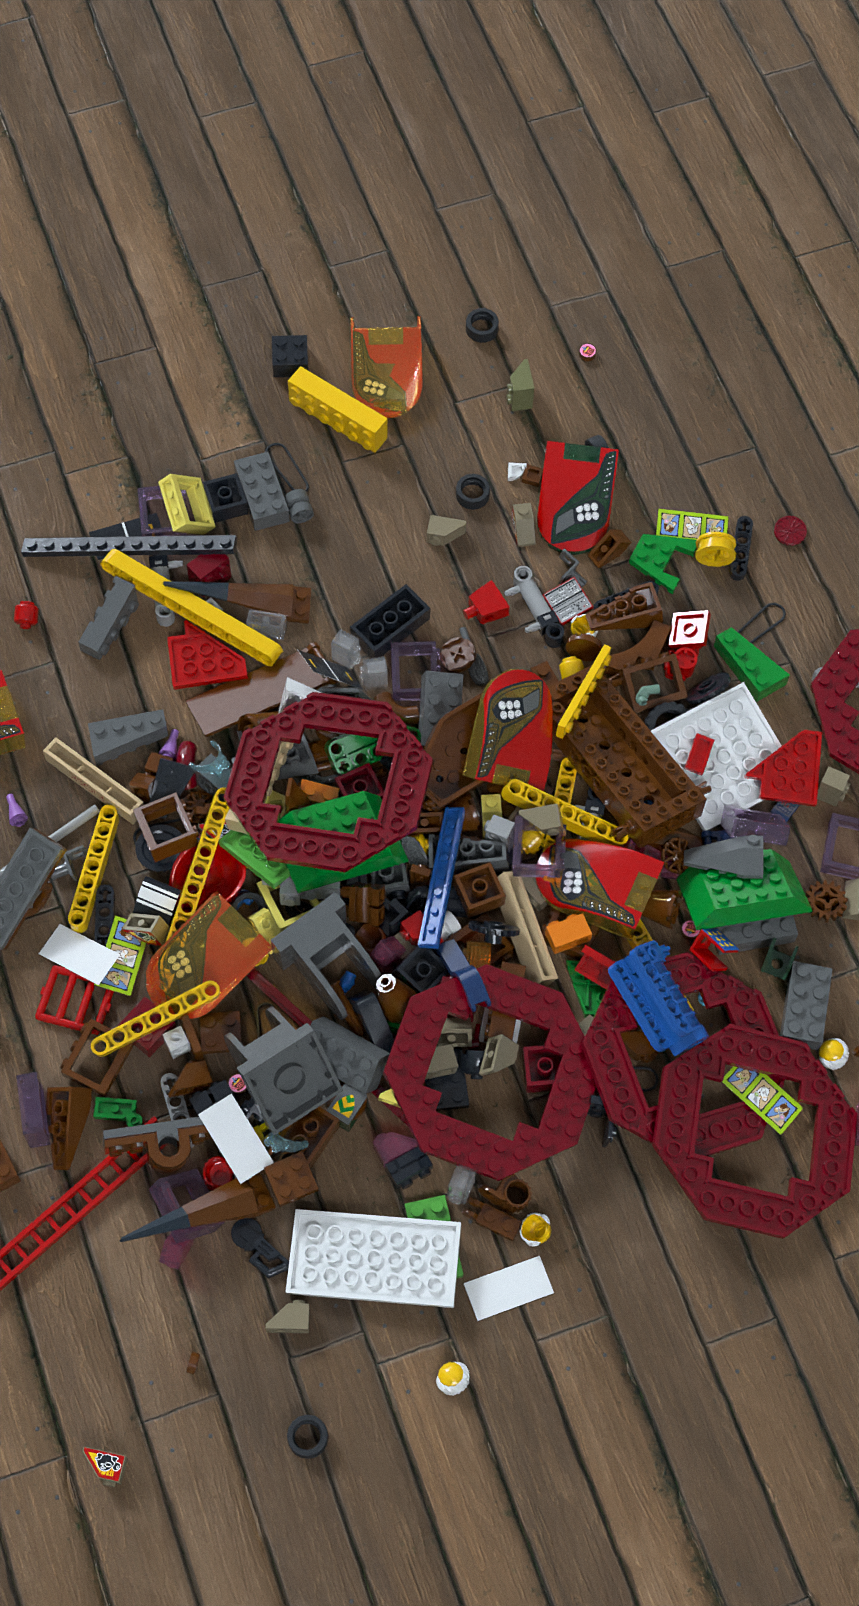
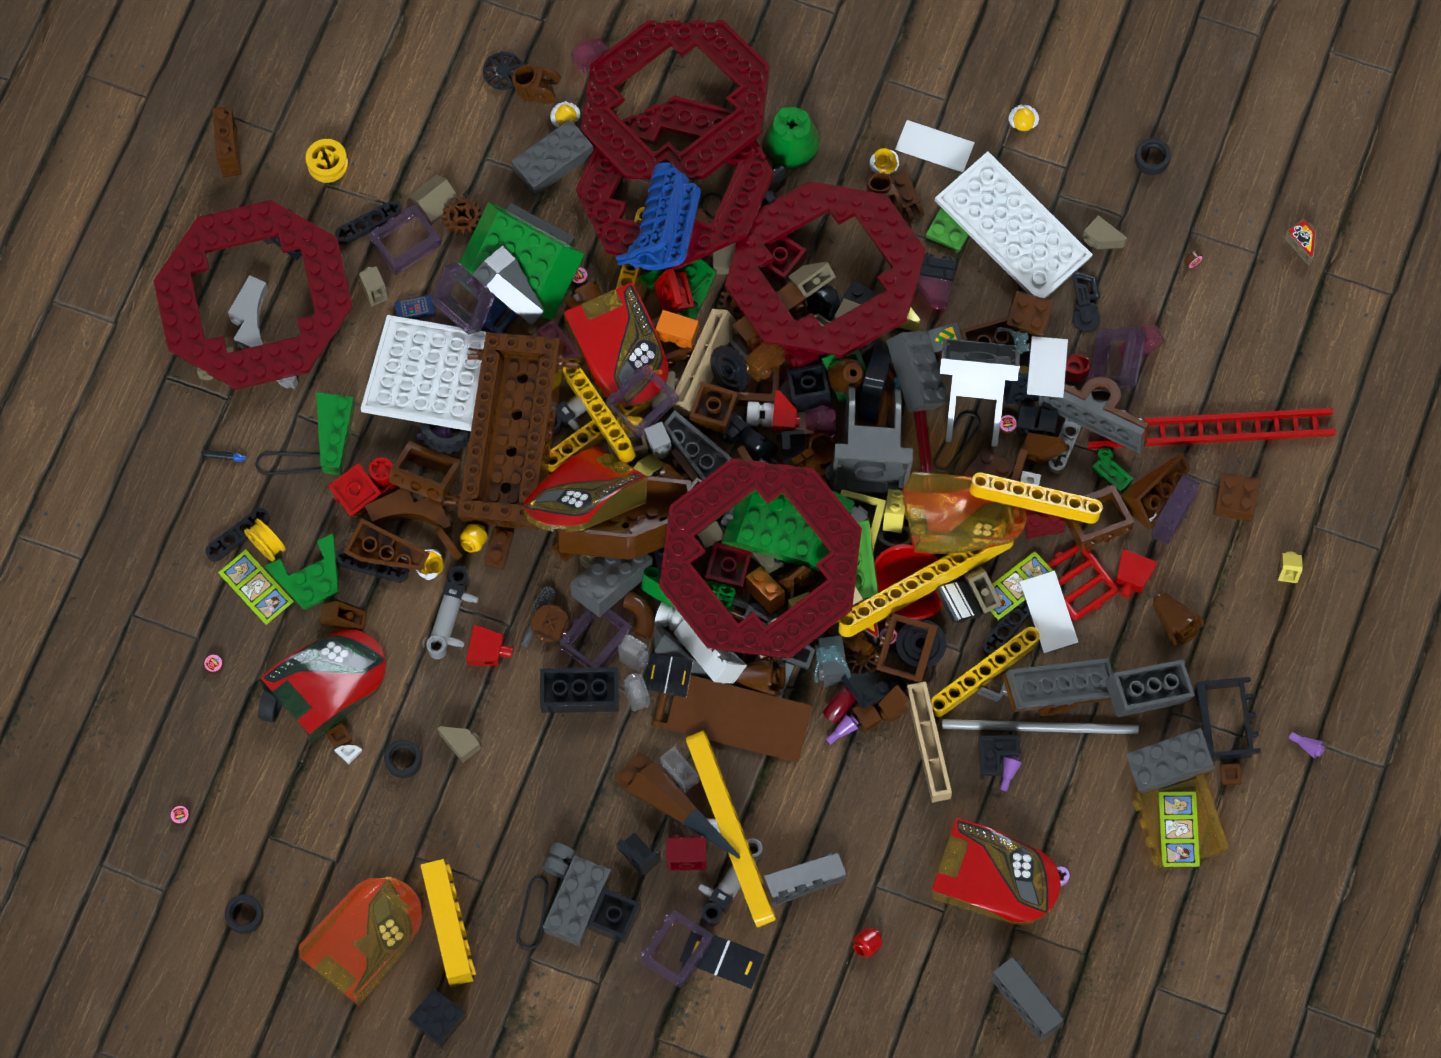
camera: 135 degrees left, 5 degrees up
(32, 1038) = (1134, 573): none -> red torso
(39, 811) = (993, 748): none -> black panel
(125, 734) = (874, 765): dark grey wedge -> none
(129, 545) = (736, 927): plate -> none
(171, 492) = (673, 911): light yellow window -> none
(202, 660) = (756, 783): red wing -> none
(223, 1204) = (1095, 337): reddish brown plate -> none
(248, 551) = (638, 854): none -> black panel
(441, 878) = (736, 433): blue tile -> none
(460, 1185) = (916, 221): clear brick -> none
(467, 974) = (785, 348): dark blue piece -> none
(521, 388) = (274, 817): olive slope -> none
(523, 524) = (390, 694): dark tan slope -> none
(544, 818) = (624, 406): dark tan slope -> none
(568, 601) = (421, 596): light grey tile -> none
(572, 571) = (394, 620): dark grey bracket -> none
(581, 697) = (493, 487): yellow plate -> none
(631, 1187) = (791, 138): none -> green cone
(644, 692) = (448, 462): sand green arm -> none
(666, 456) = (213, 664): none -> tile
(676, 855) = (538, 329): reddish brown wheel -> none
(699, 754) = (449, 383): red tile -> none
(702, 952) = (584, 234): red piece -> none
(708, 688) = (383, 441): black gear -> none
(763, 1097) = (646, 118): sticker -> none
(786, 960) = (538, 193): clear green piece -> none
(790, 530) = (183, 518): dark red wheel -> none
(791, 771) = (391, 320): red wing -> none
(813, 590) = (223, 455): none -> black piece

